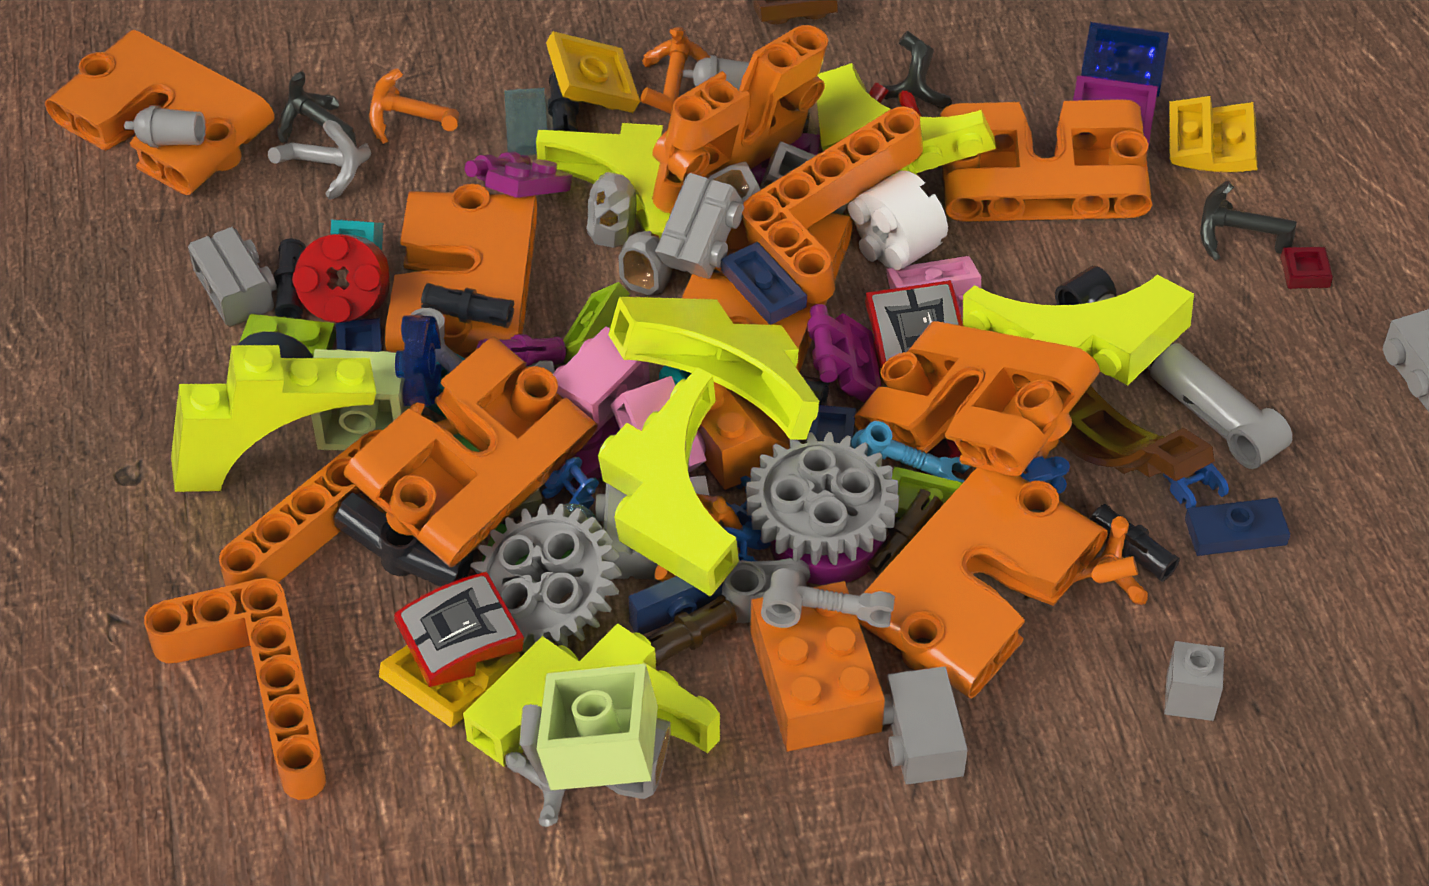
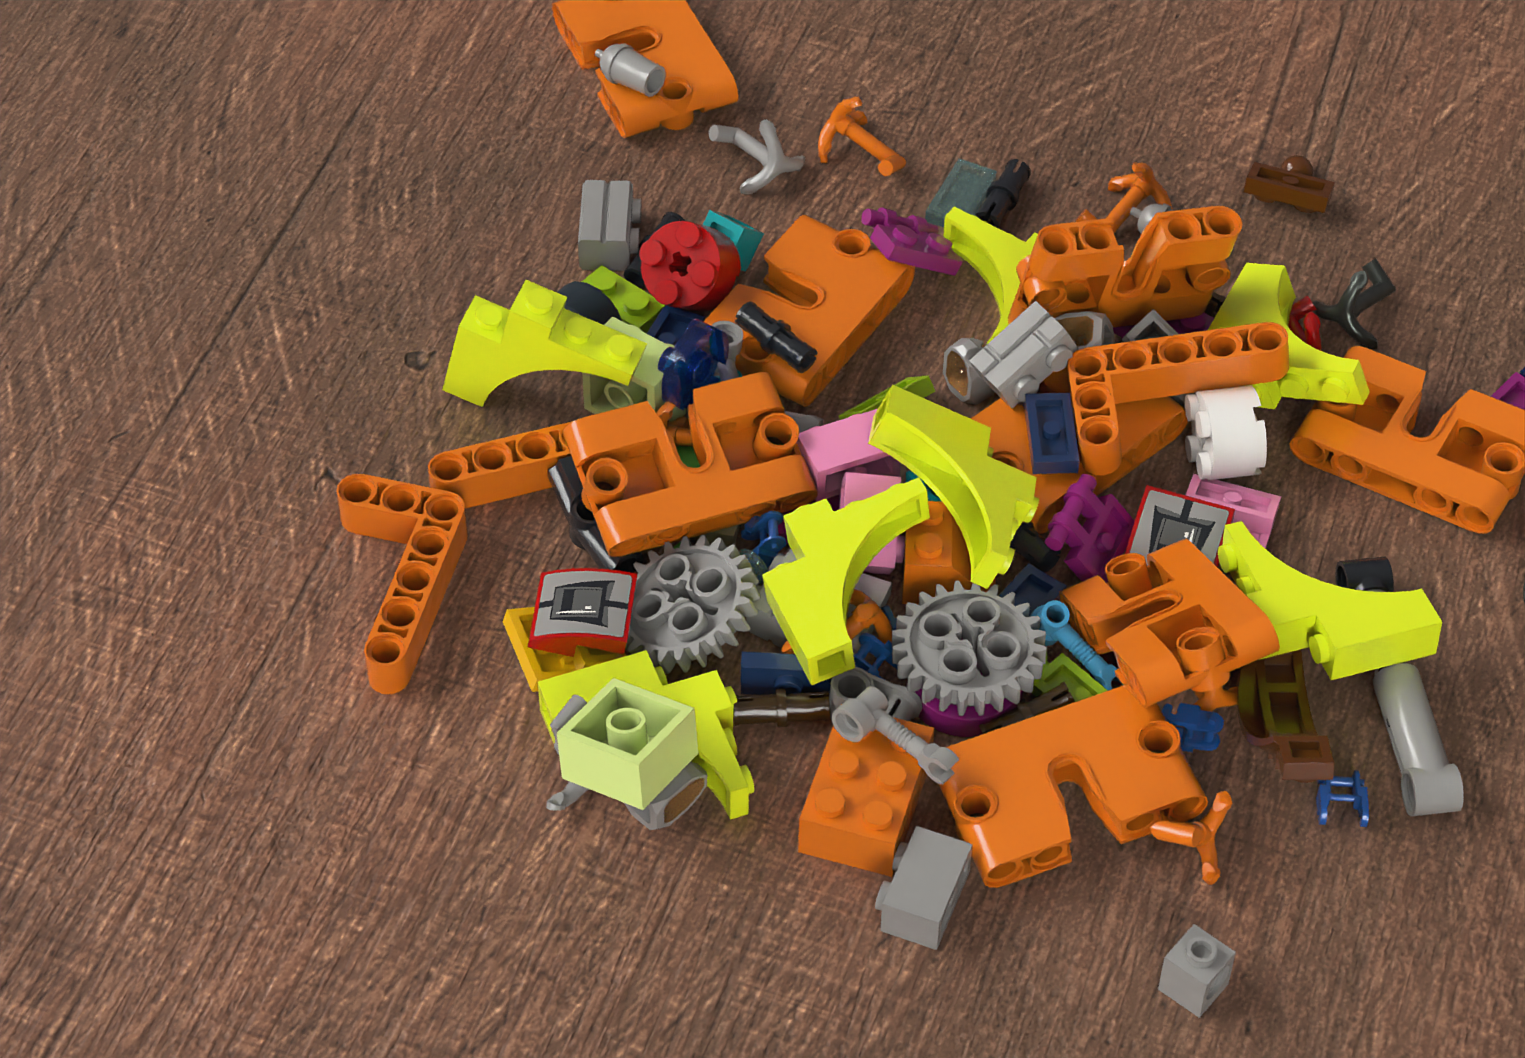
camera: 30 degrees right, 0 degrees up
(308, 105) = (771, 98): pearl dark grey piece -> none
(535, 349) = (825, 406): magenta pin -> none
(592, 72) = (1045, 174): yellow plate -> none
(611, 210) = (974, 308): light grey rock -> none
(1156, 560) = (1242, 828): black pin -> none
(1237, 526) = (1352, 859): dark blue plate -> none

